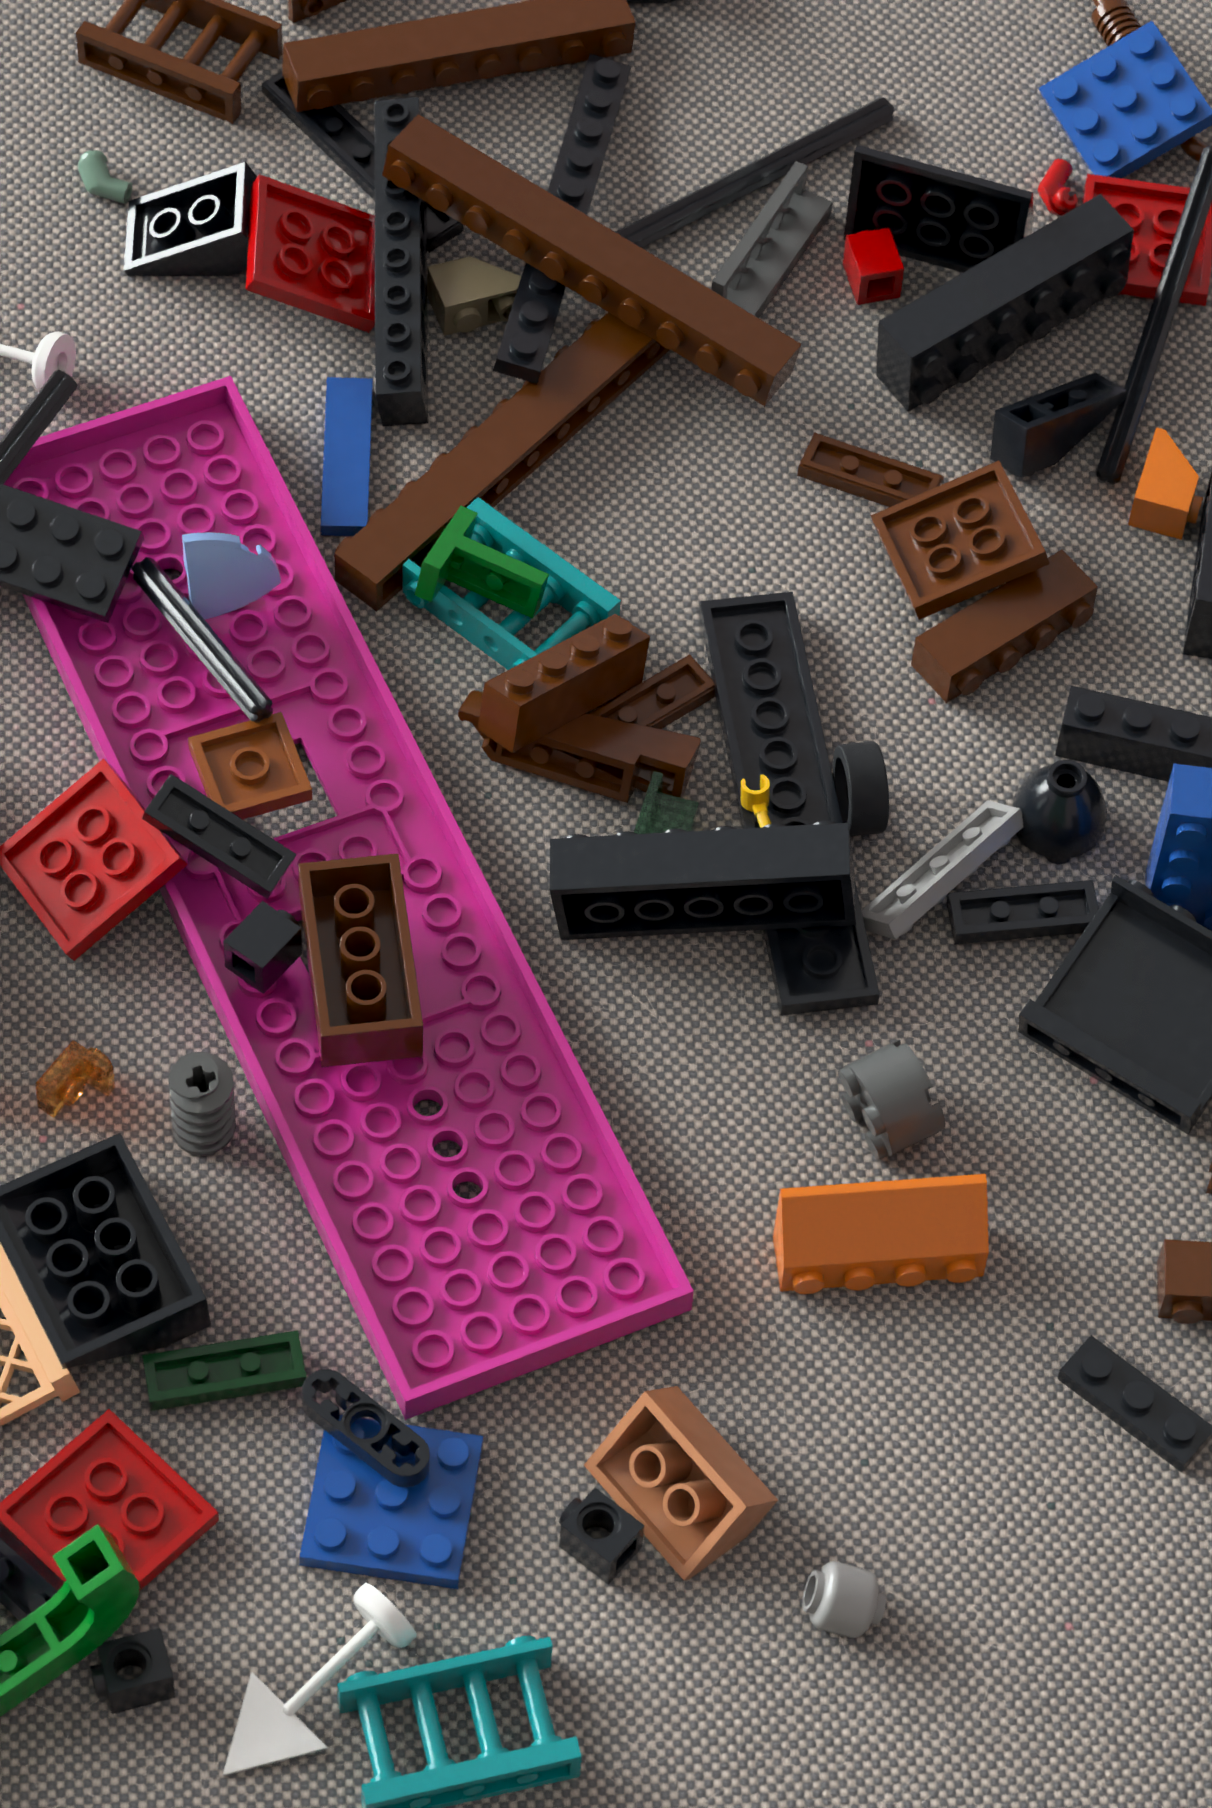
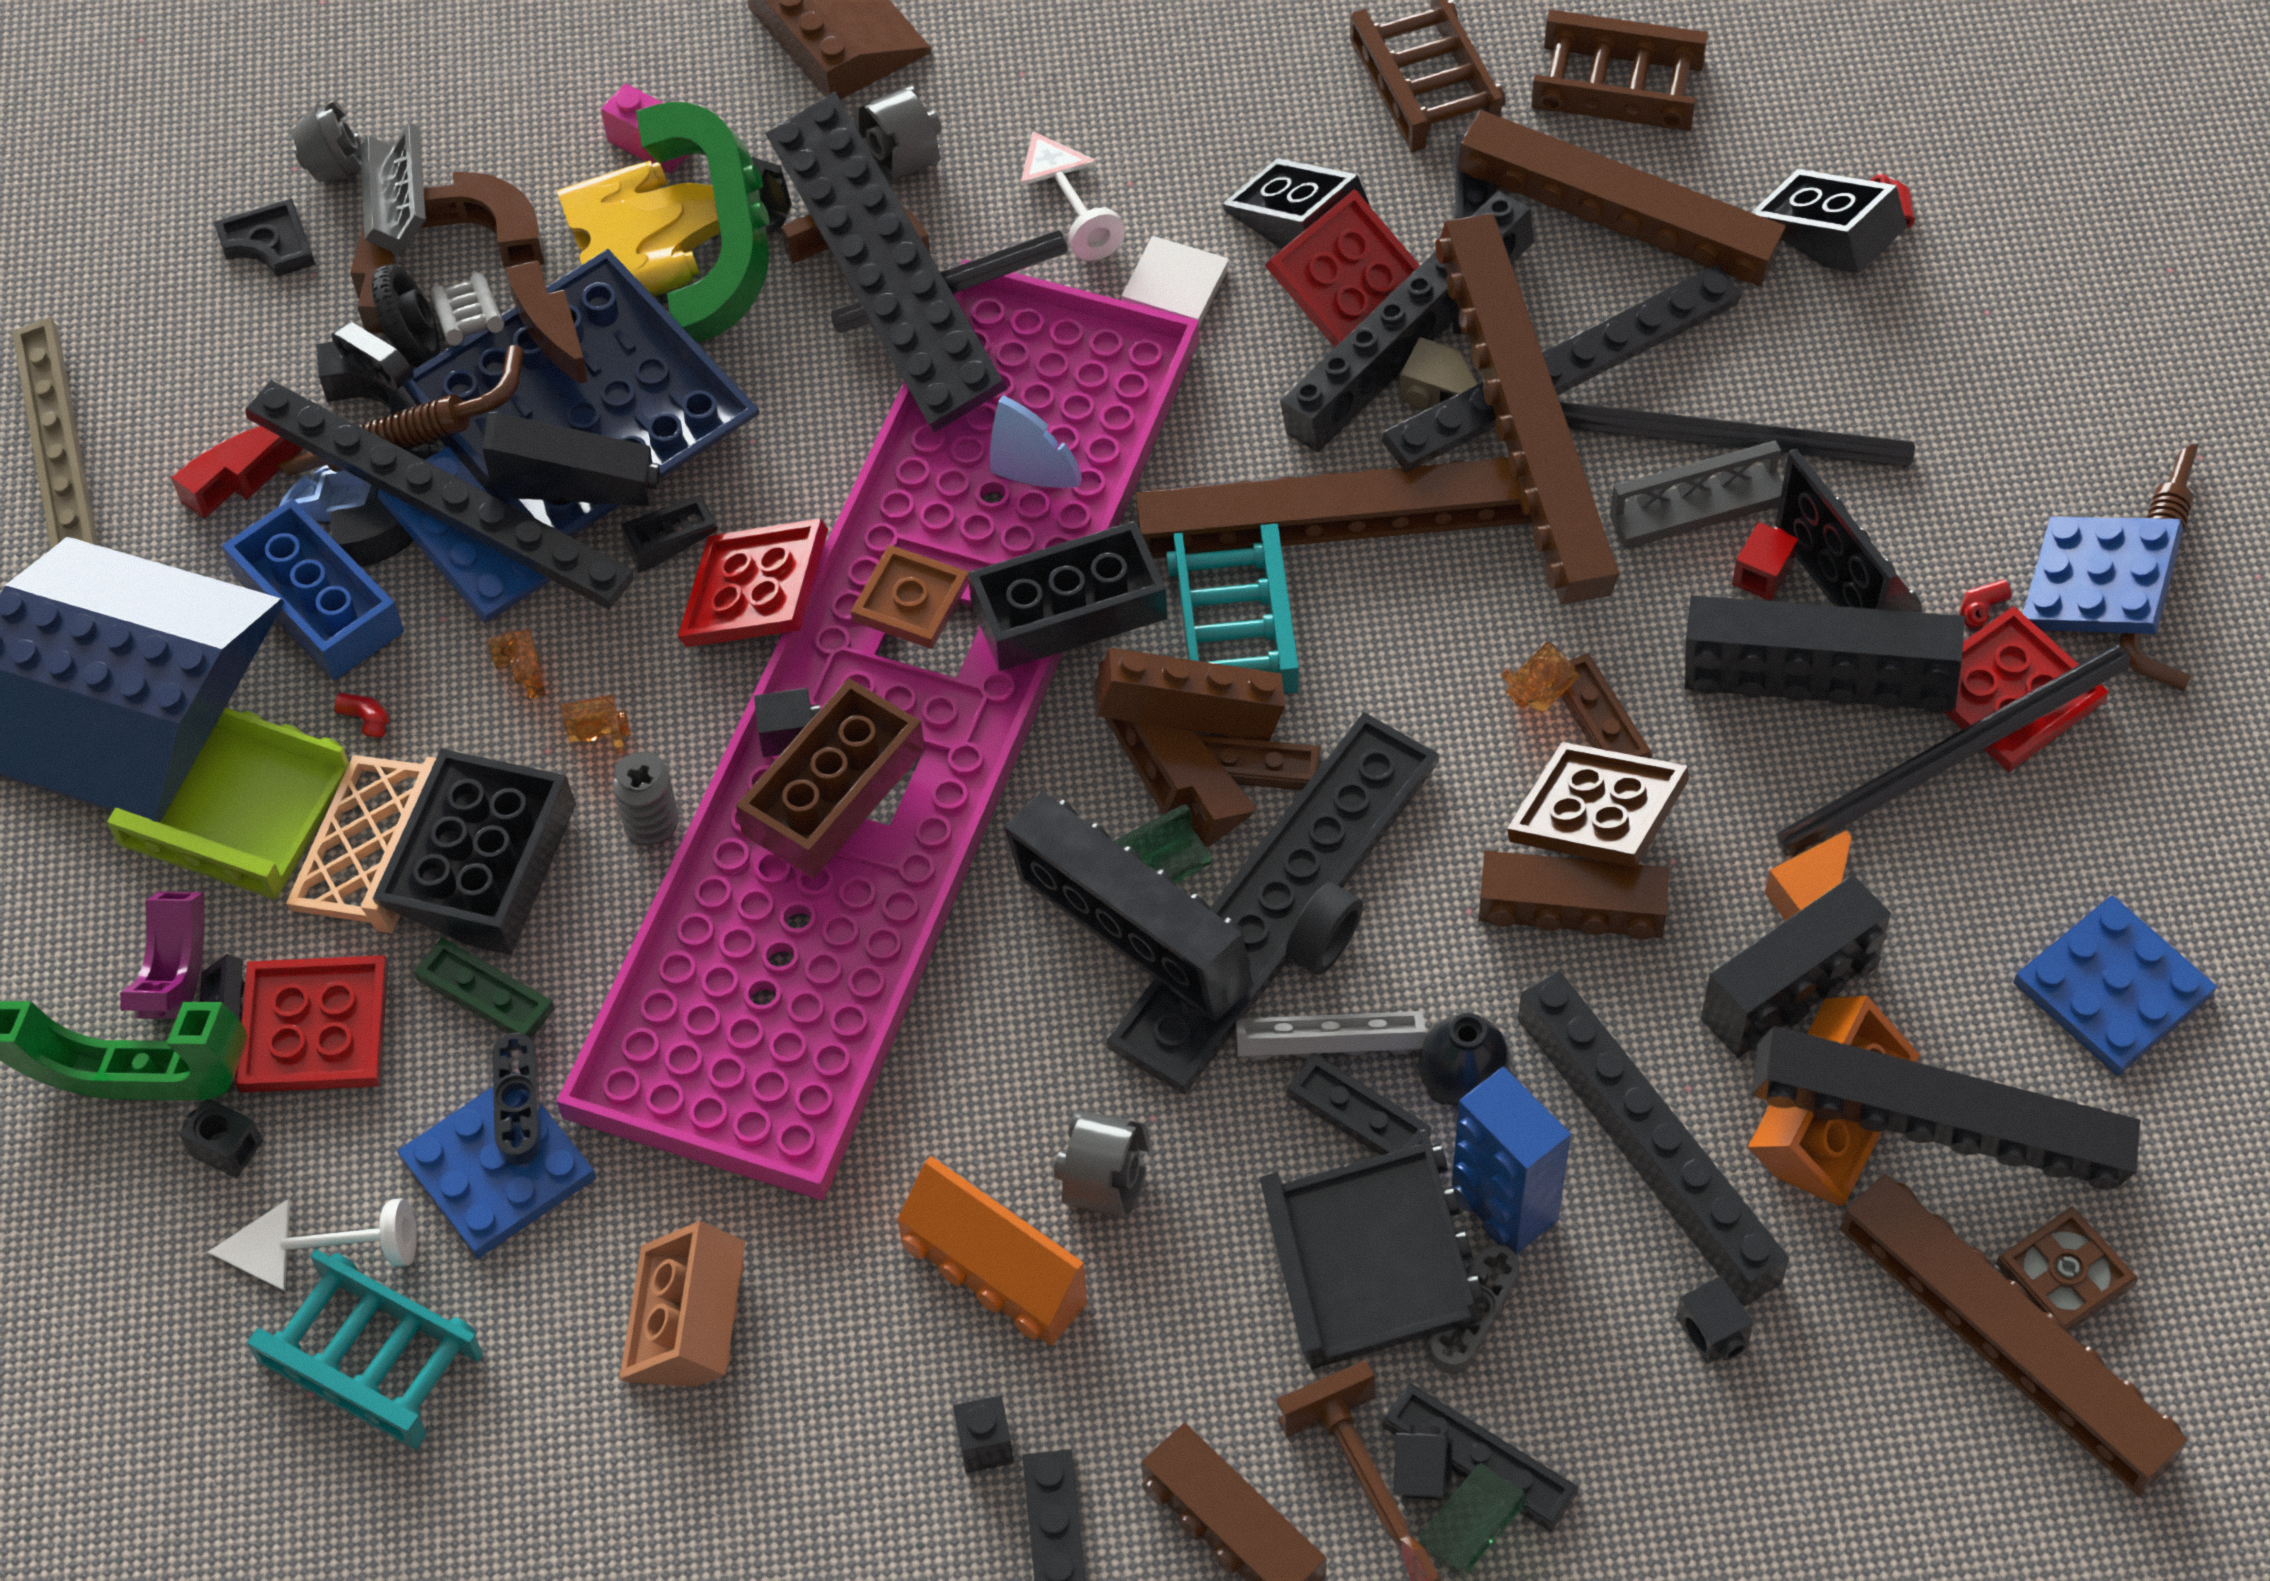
camera: 50 degrees right, 0 degrees up
(98, 180) = (1269, 129): sand green arm -> none
(155, 359) = (1176, 279): none -> white tile
(202, 640) = (968, 490): black axle -> none
(219, 836) = (833, 623): black plate -> none
(346, 456) = (1230, 436): blue tile -> none
(390, 670) = (1067, 595): none -> black brick
(479, 569) = (1211, 554): green bracket -> none
(606, 1555) = (597, 1316): black brick -> none
(757, 800) = (1243, 884): yellow hand -> none
(805, 476) = (1541, 678): none -> clear orange bracket
(843, 1599) = (697, 1481): light grey head -> none
(1020, 1377) = (983, 1434): none -> black brick
(1050, 424) = (1769, 771): black slope -> none

